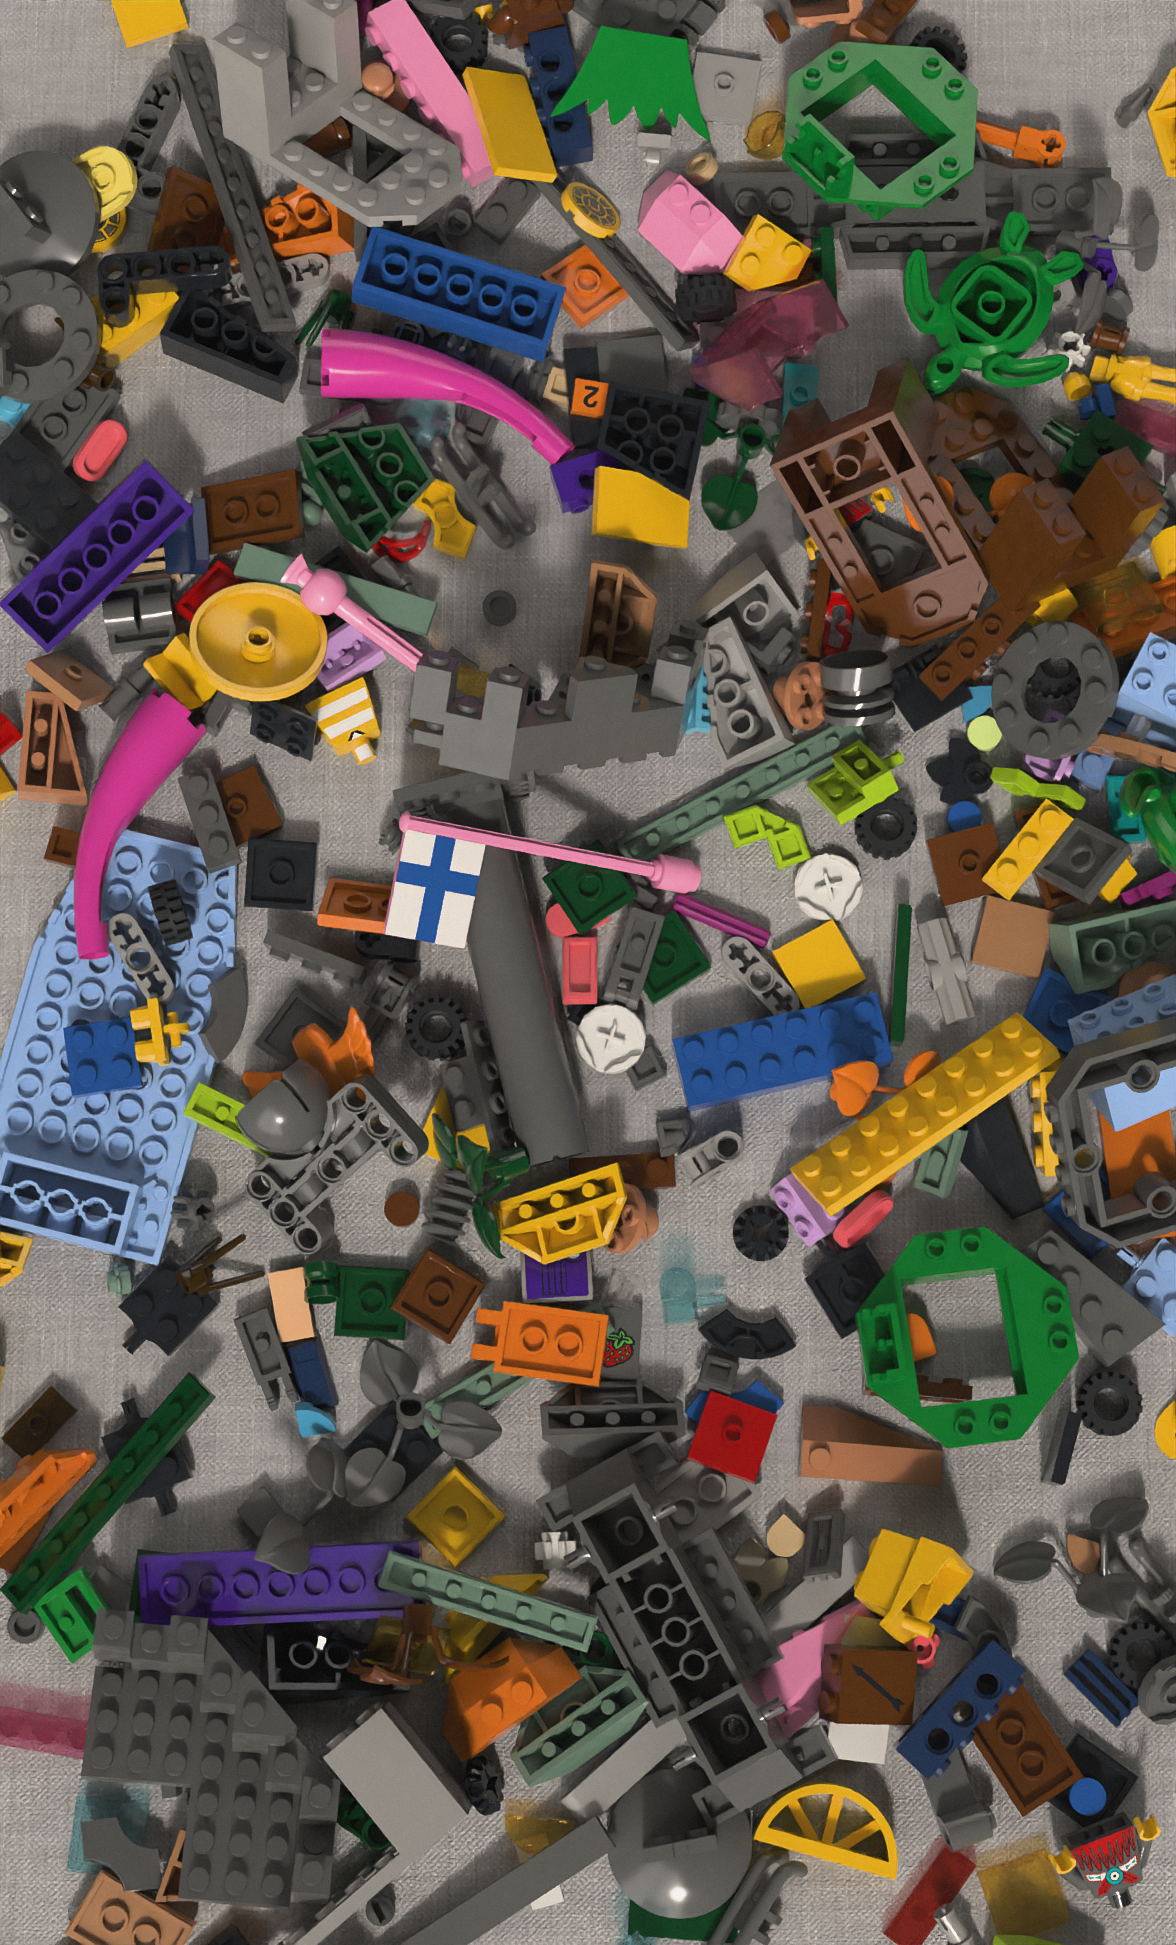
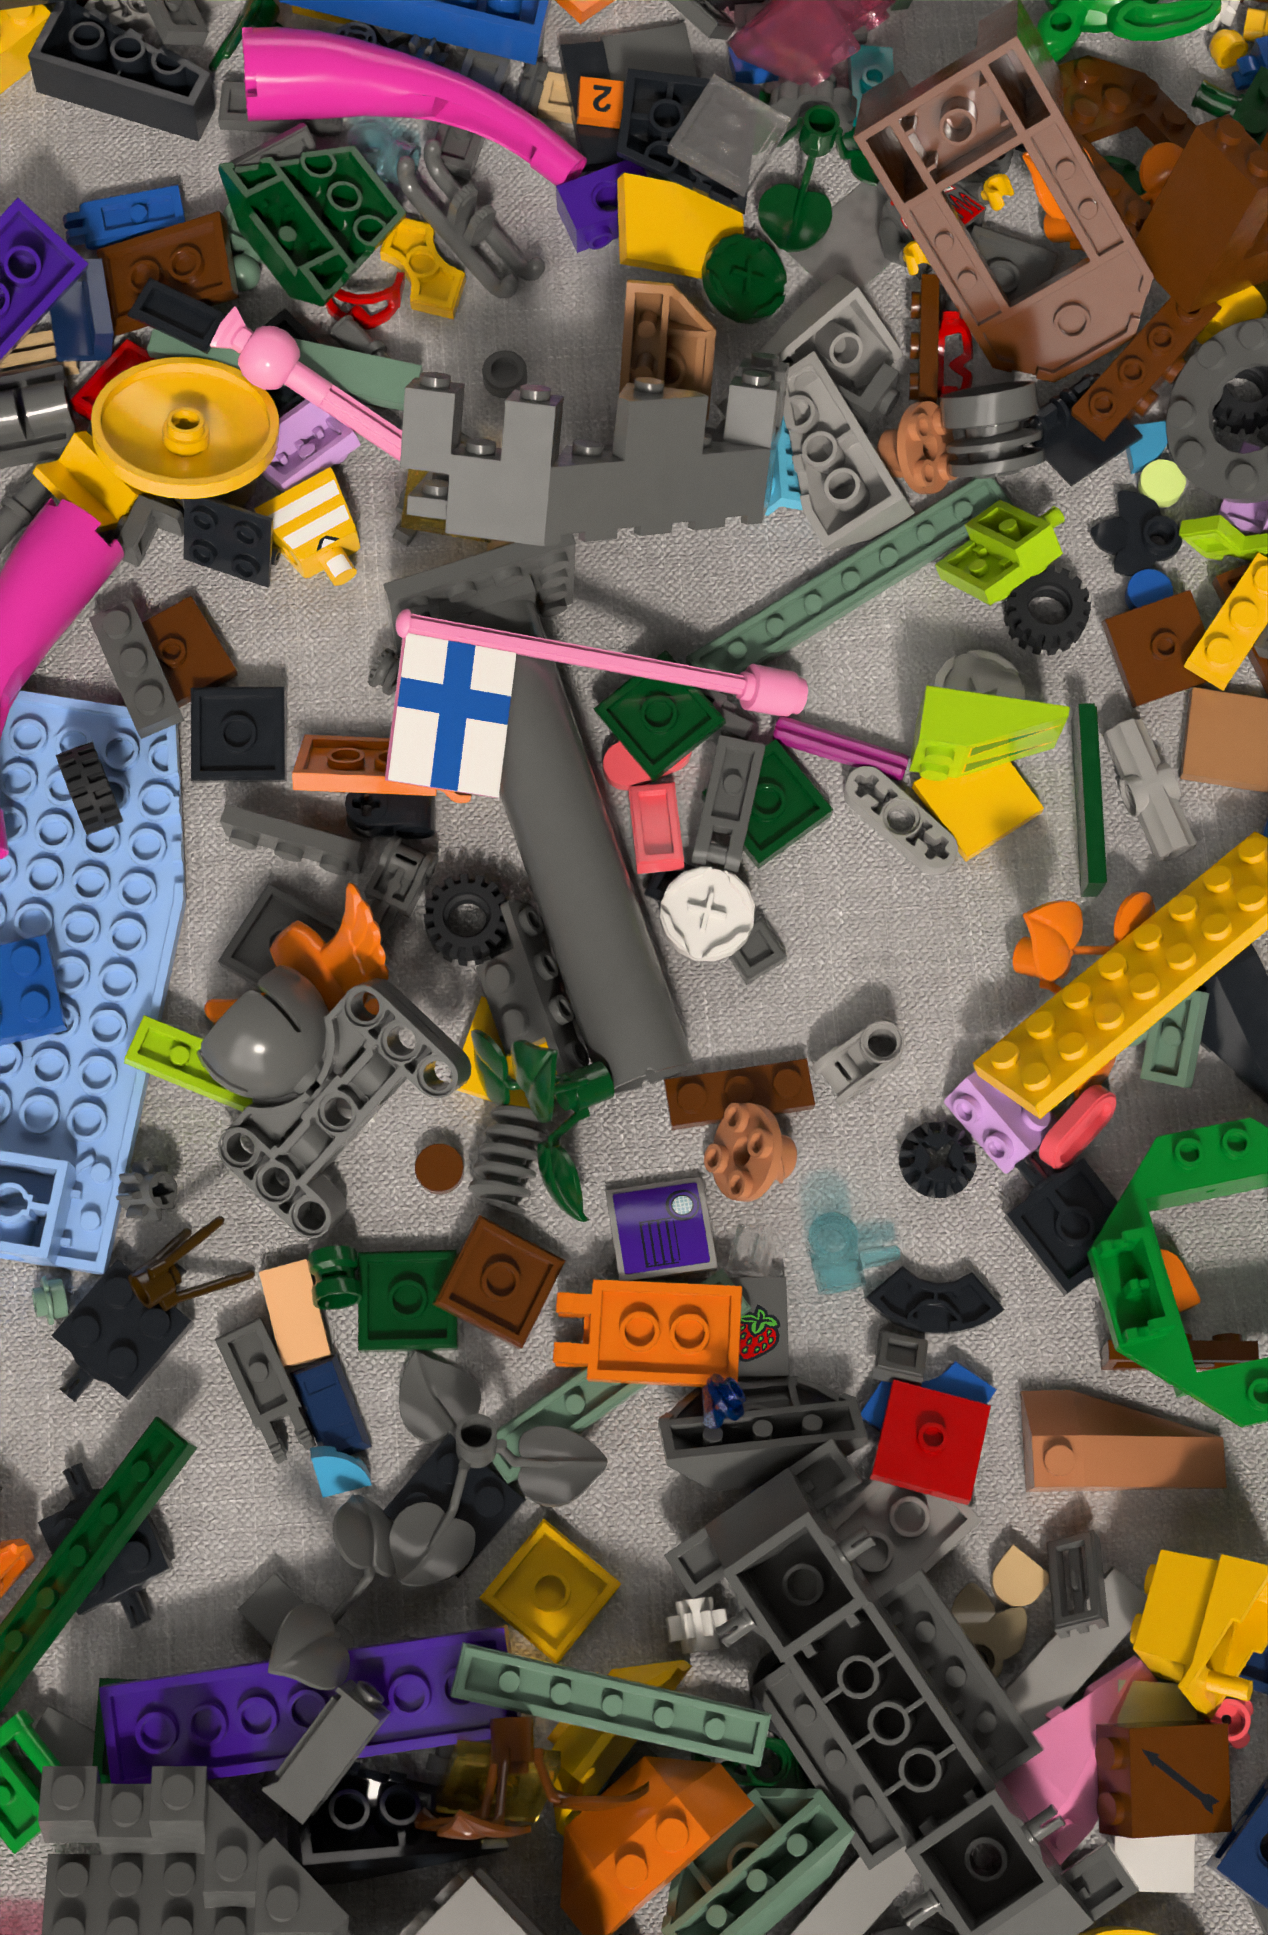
camera: 10 degrees left, 5 degrees down
(136, 933) = (49, 876): light grey beam -> none
(153, 1017) = (74, 933): yellow hips -> none
(225, 463) = (123, 217): none -> blue hinge
(226, 1014) = (176, 926): dark grey tile -> none
(258, 550) = (177, 315): none -> black tile
(291, 1613) = (328, 1749): none -> dark grey window
(563, 1215) = (668, 1152): yellow wedge -> none
(585, 1396) = (720, 1400): none -> clear blue plate
(672, 1135) = (803, 1037): dark grey tile -> none
(682, 441) = (729, 135): none -> clear tile
(685, 548) = (744, 279): none -> dark green tile
(779, 1051) = (935, 912): blue brick -> none
(782, 836) = (910, 633): lime tile -> none
(815, 922) = (976, 731): none -> lime slope

